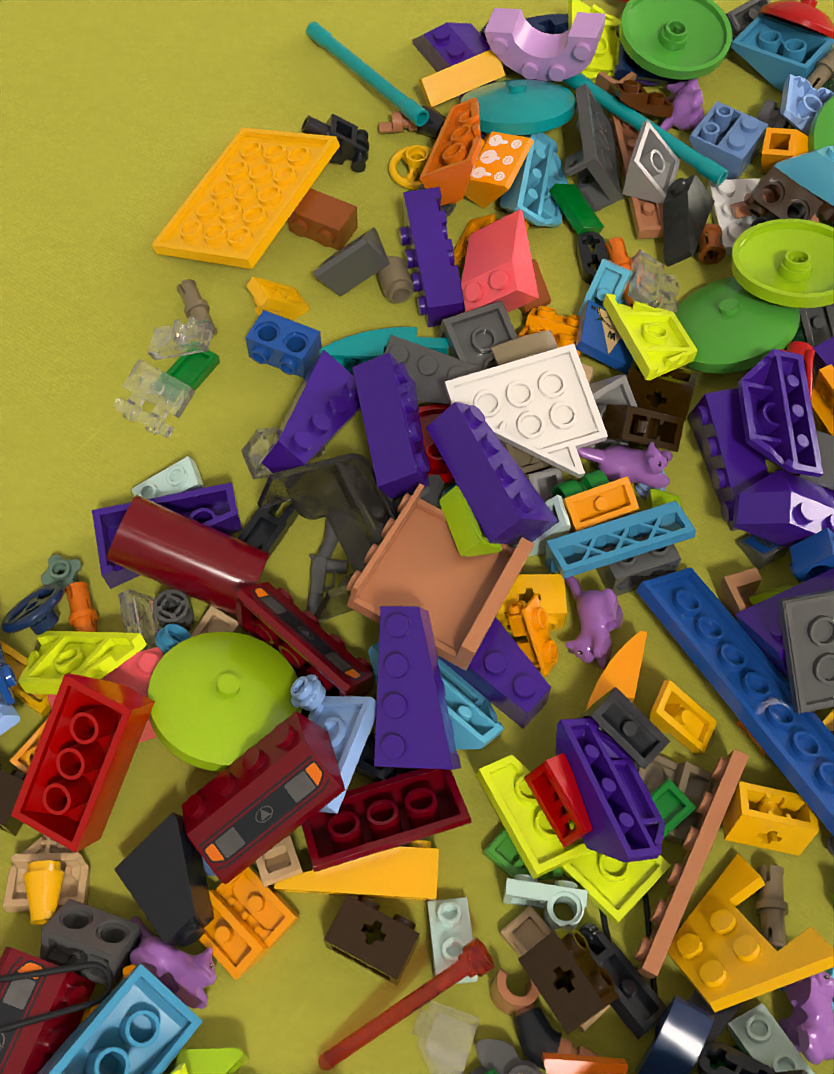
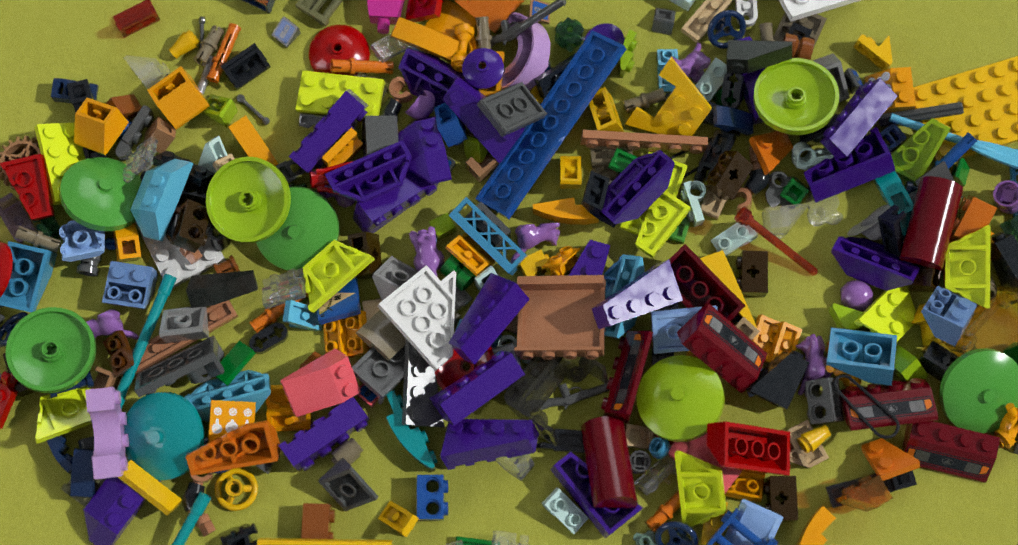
camera: 115 degrees left, 15 degrees up
(307, 692) = (657, 352): light blue plate -> none
(464, 526) = (522, 320): lime slope -> none
(556, 787) = (649, 210): red slope -> none
(643, 426) = (402, 253): dark brown brick -> none

